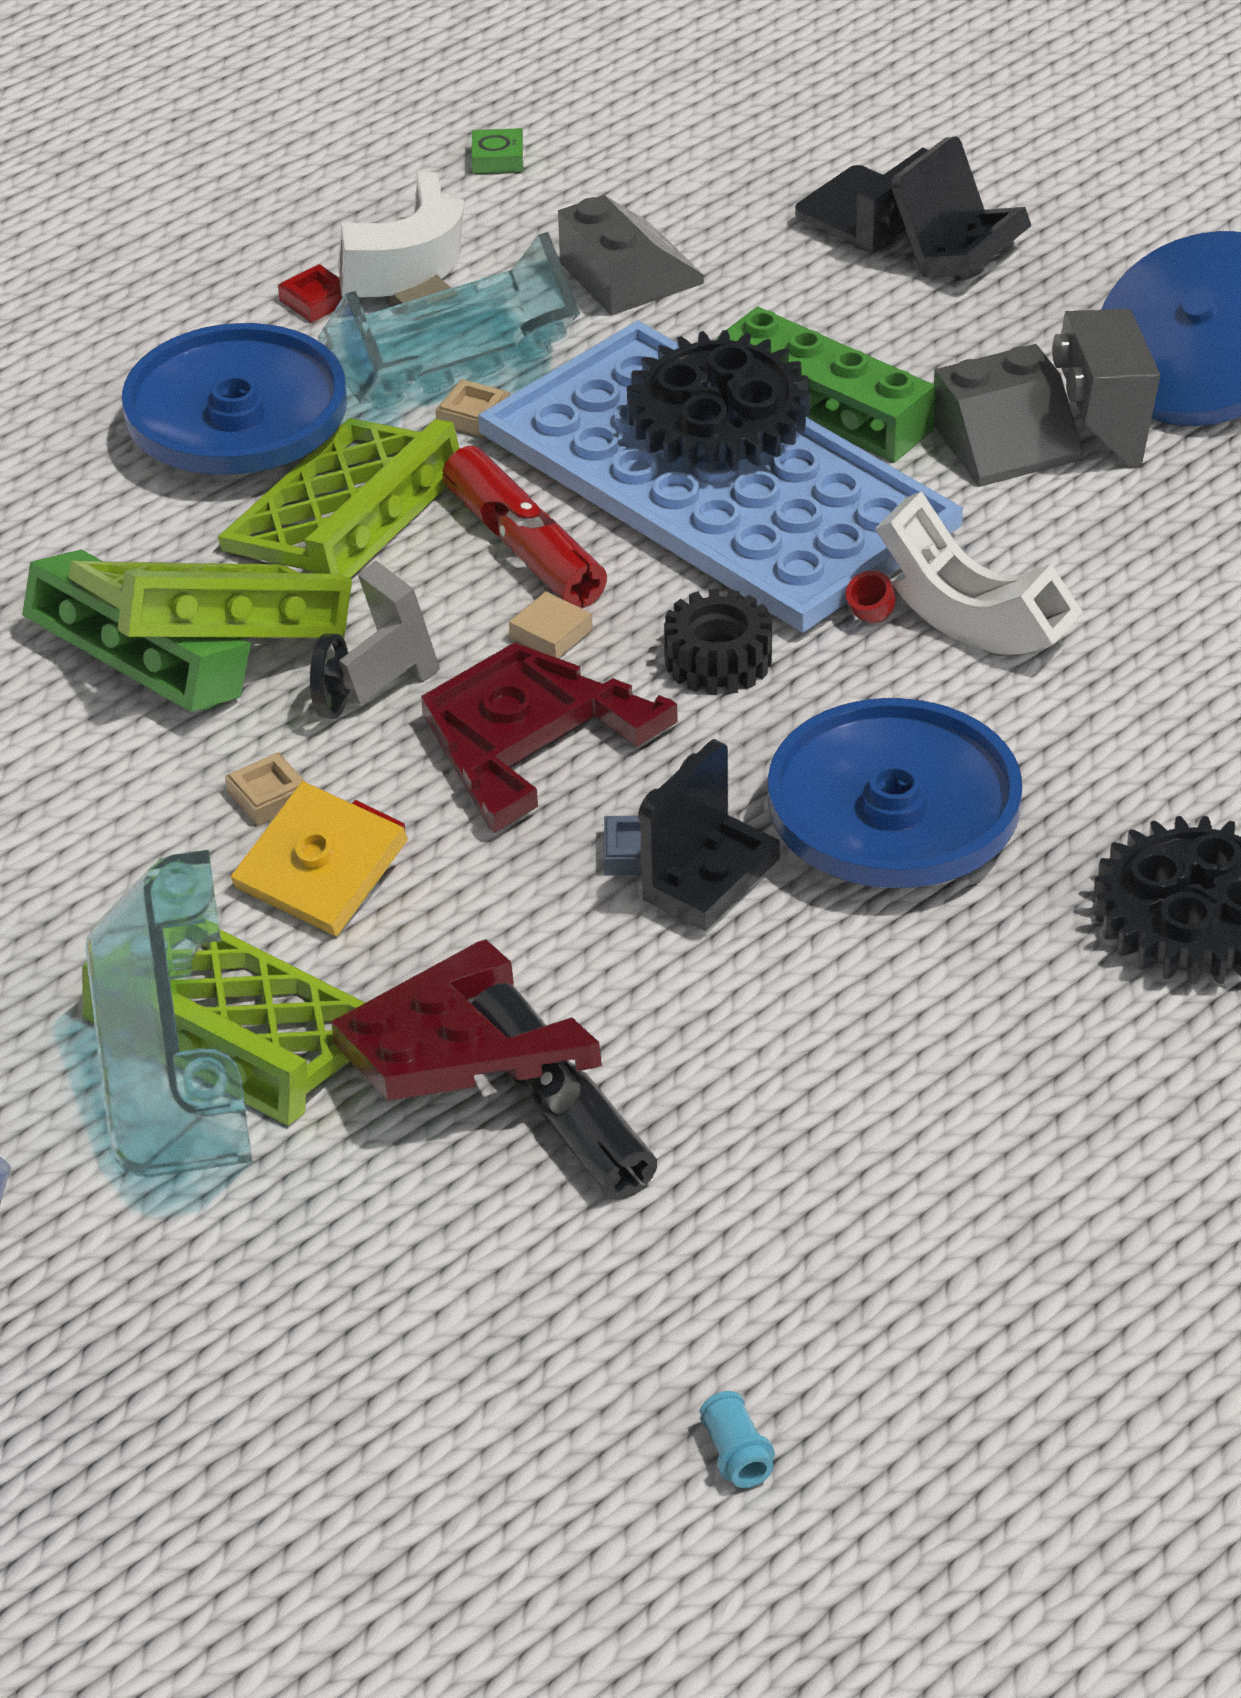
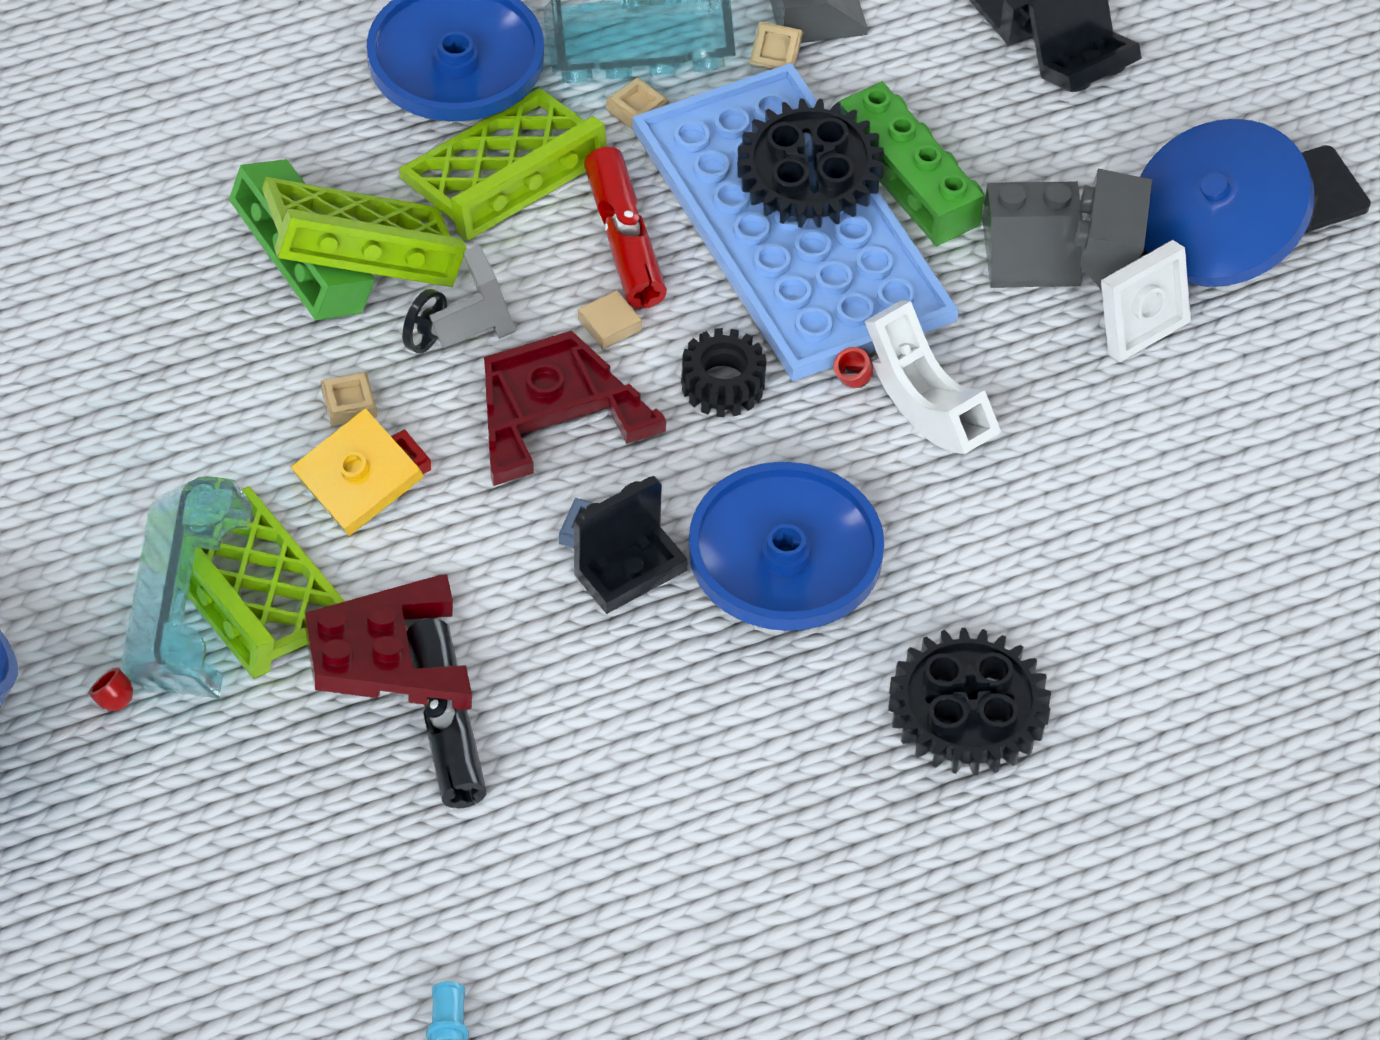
camera: 15 degrees right, 10 degrees up
(111, 1185) = (112, 690): none -> red hinge
(608, 310) = (775, 46): none -> tan tile
(1177, 439) = (1146, 300): none -> white plate

